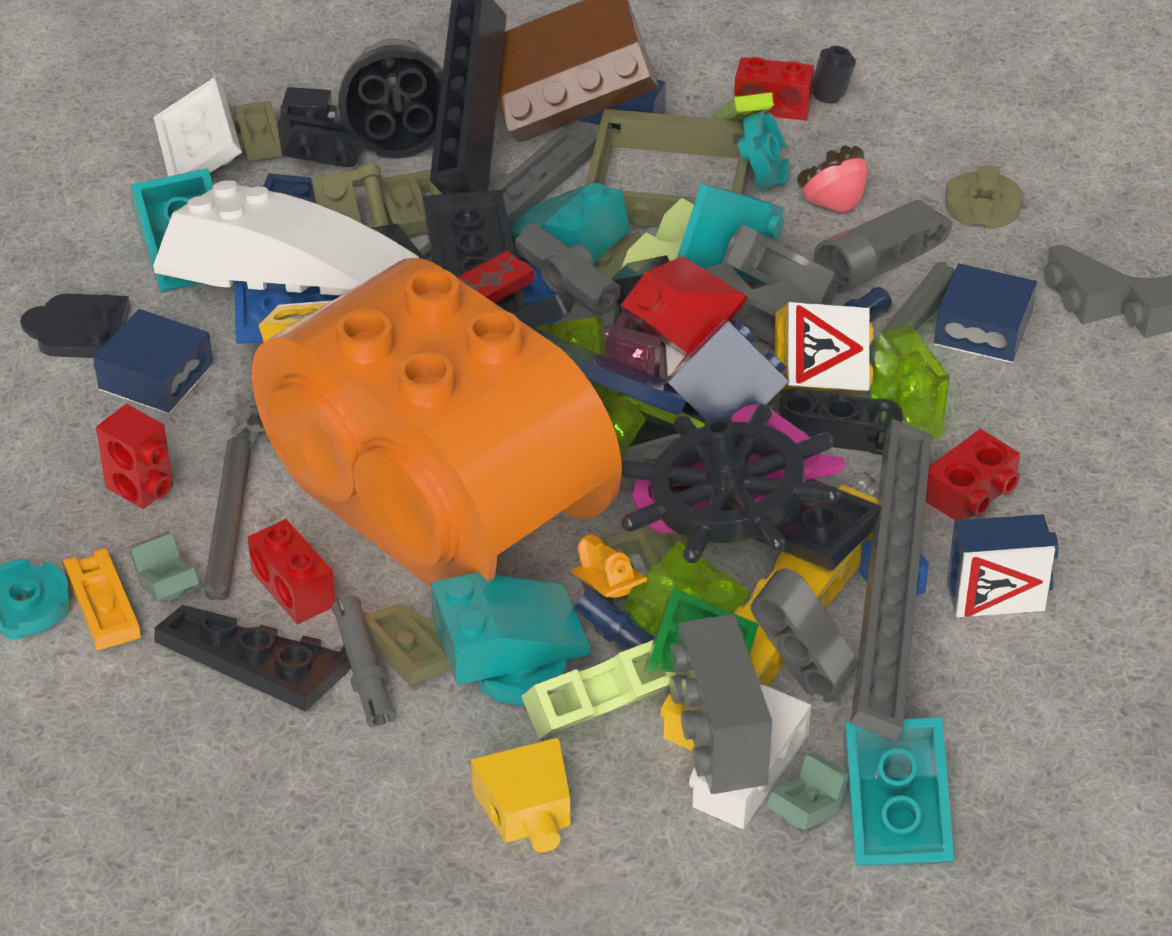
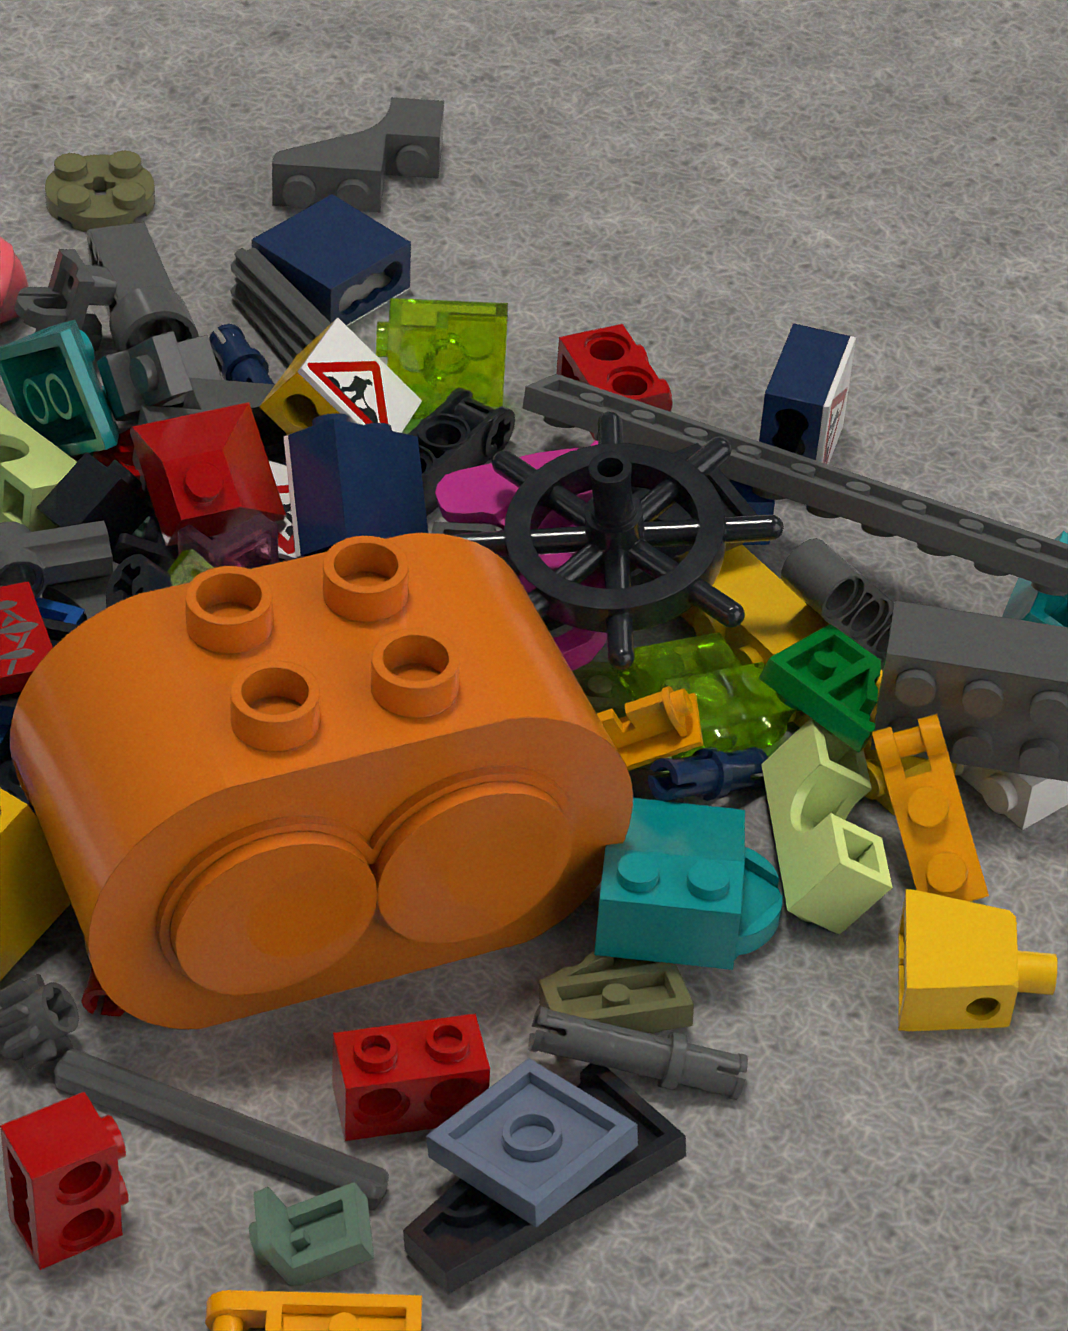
camera: 70 degrees left, 0 degrees up
(257, 628) = (532, 1141): none -> sand blue plate
(627, 728) = (930, 813): none -> light orange plate
(835, 216) = (67, 297): none -> dark grey hips

